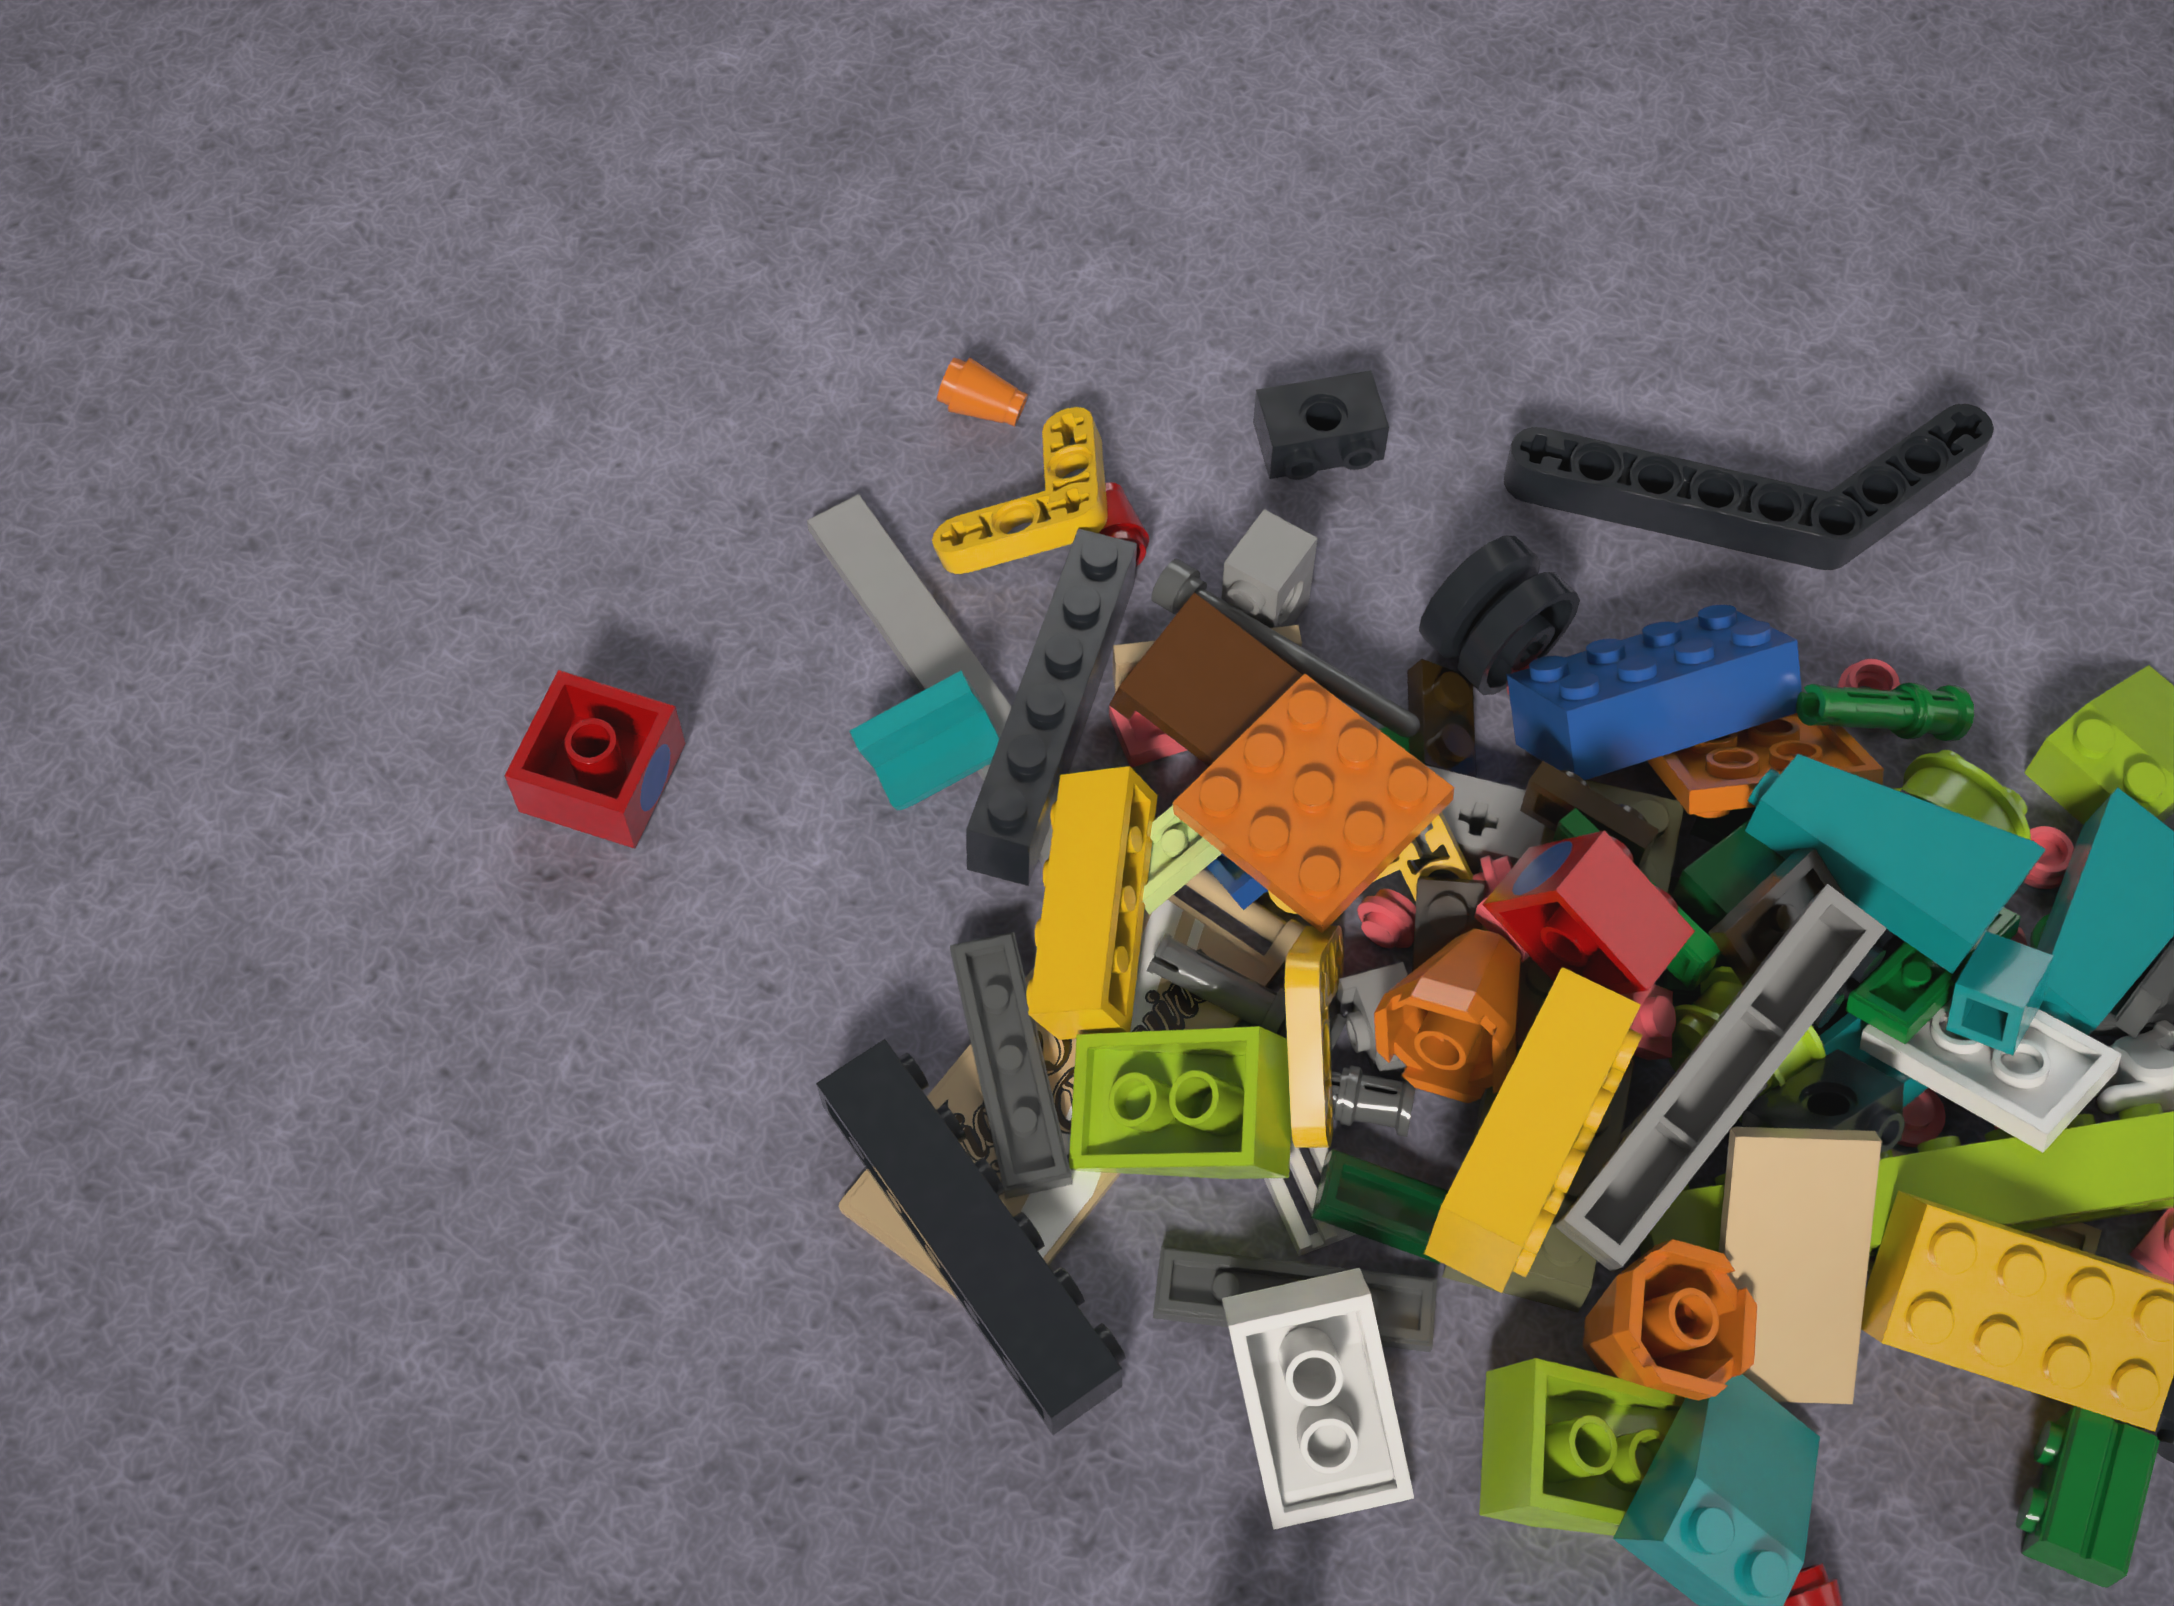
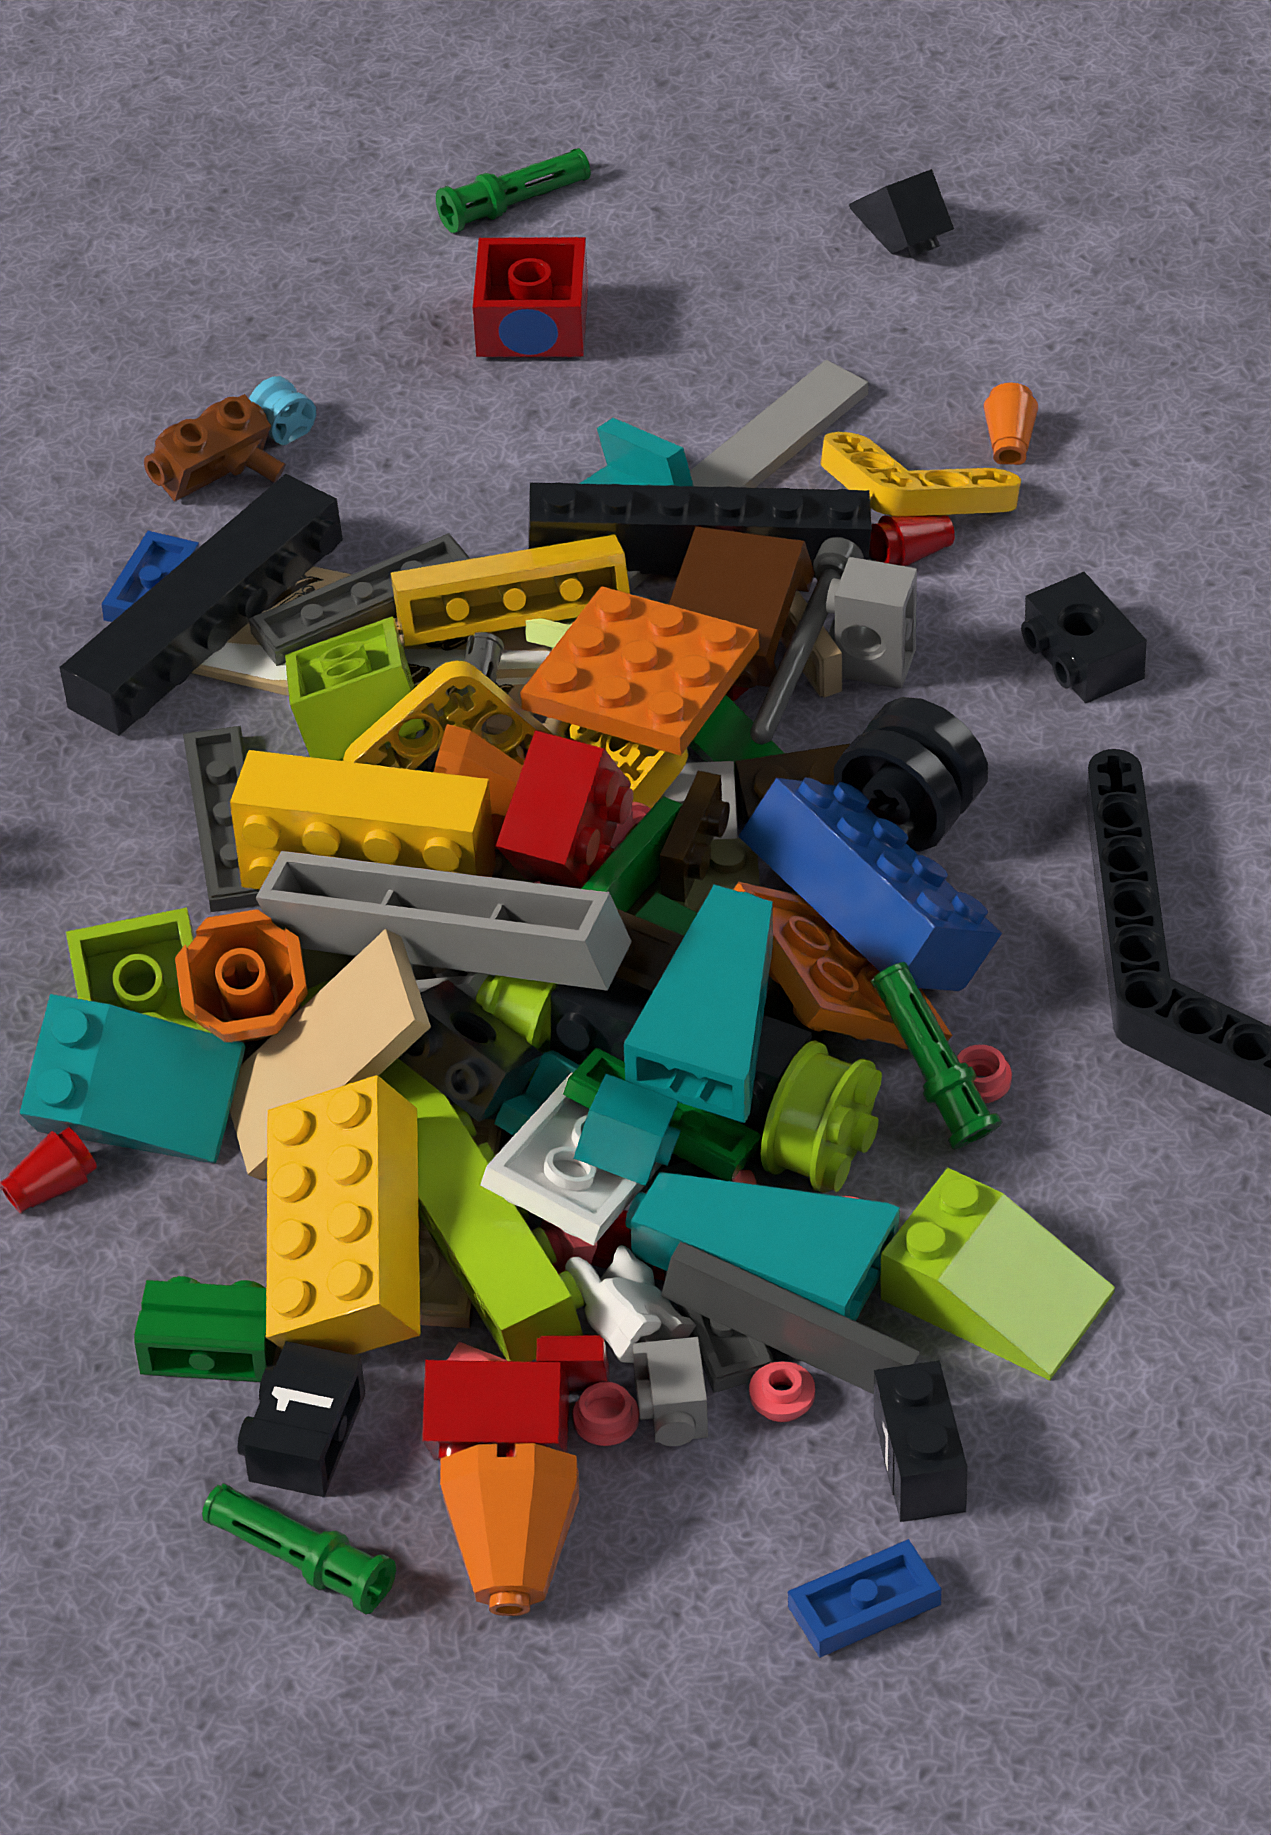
camera: 75 degrees right, 15 degrees down
(375, 755) = (493, 194): none -> green pin
(616, 383) = (906, 214): none -> black slope
(651, 1071) = (286, 410): none -> medium azure wheel
(694, 1158) = (211, 446): none -> dark orange brick
(884, 1287) = (147, 566): none -> blue plate
(1318, 1398) = (135, 822): white slope -> none

